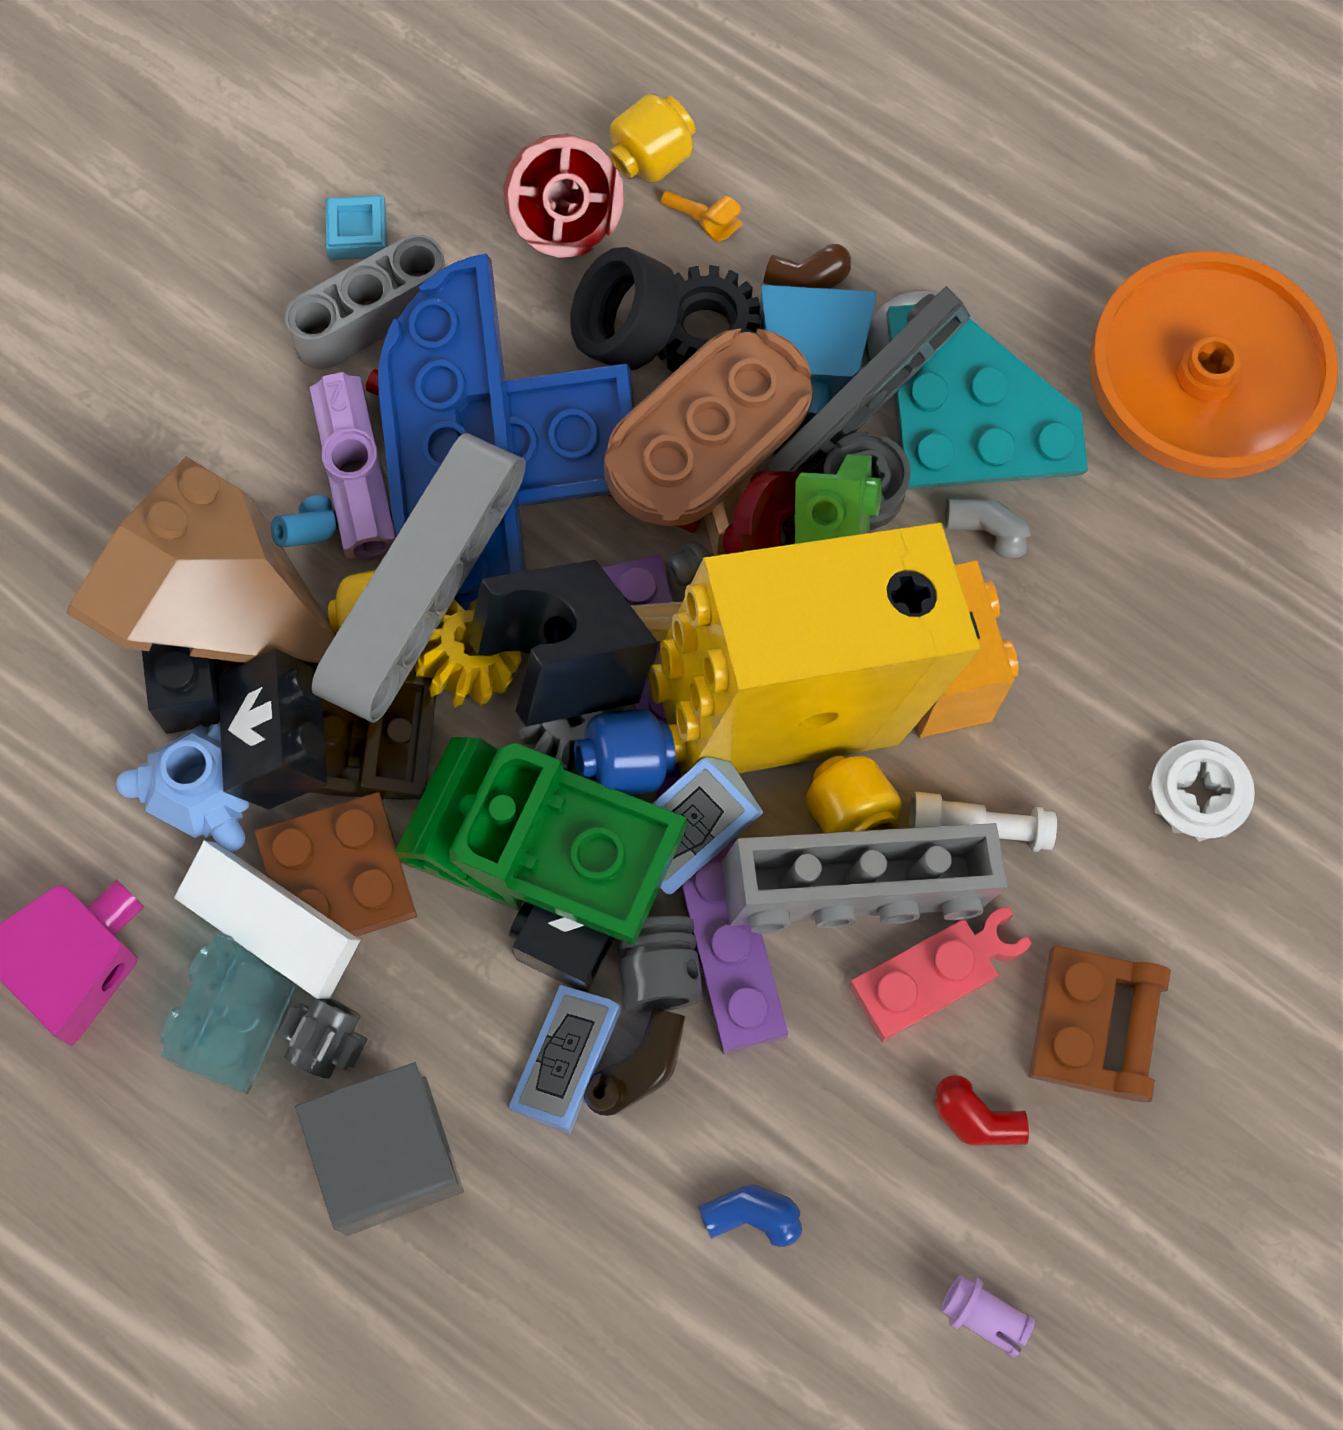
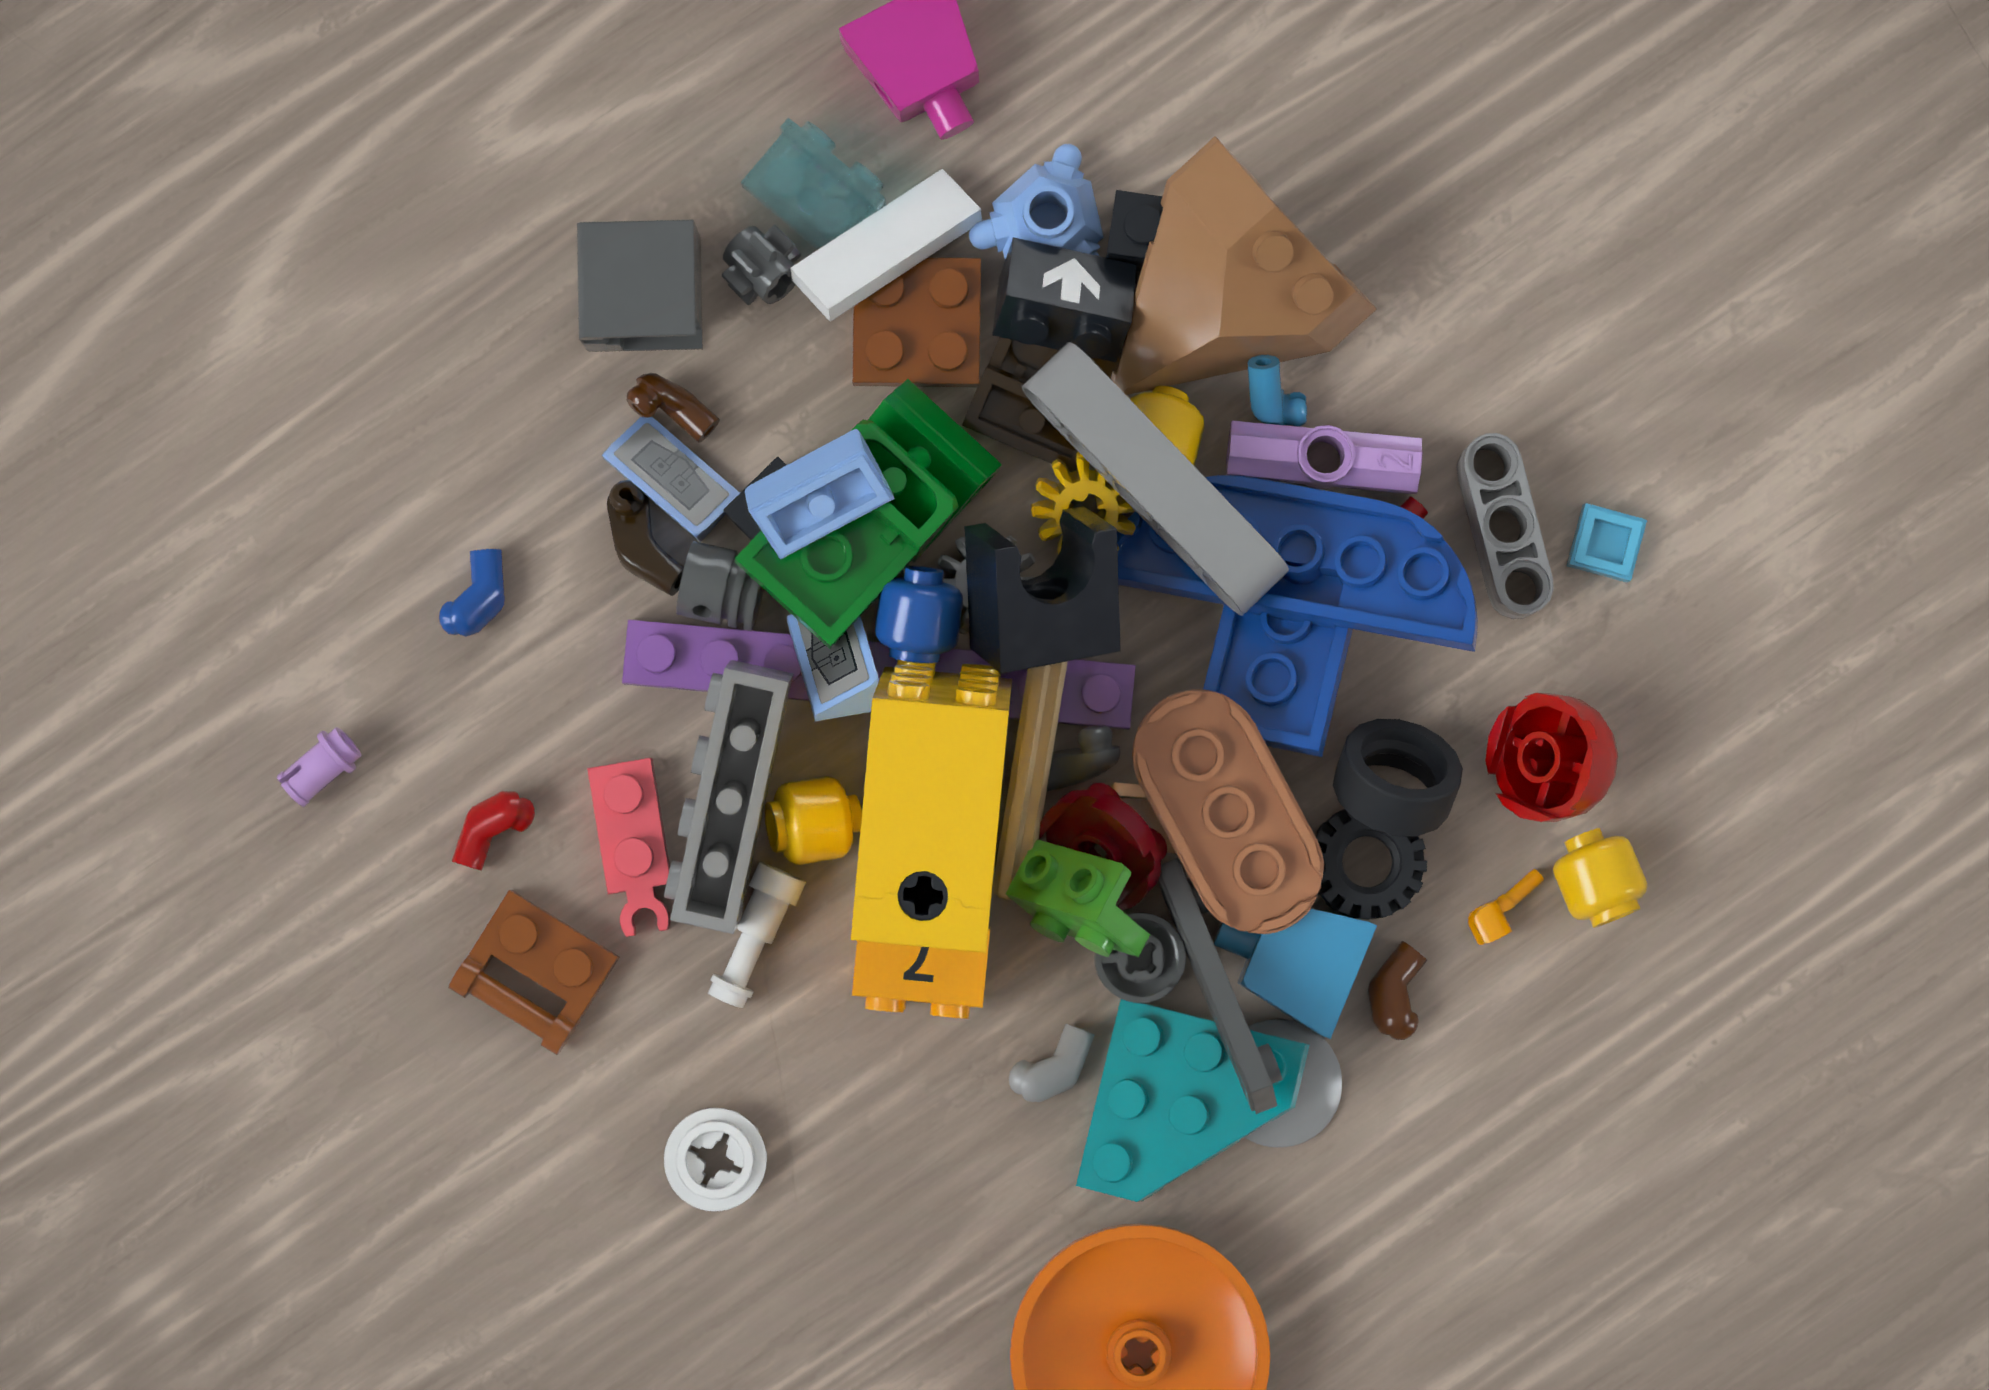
camera: 110 degrees right, 15 degrees up
(486, 1093) = (677, 402): none -> reddish brown arm
(538, 873) = (817, 494): none -> light blue slope

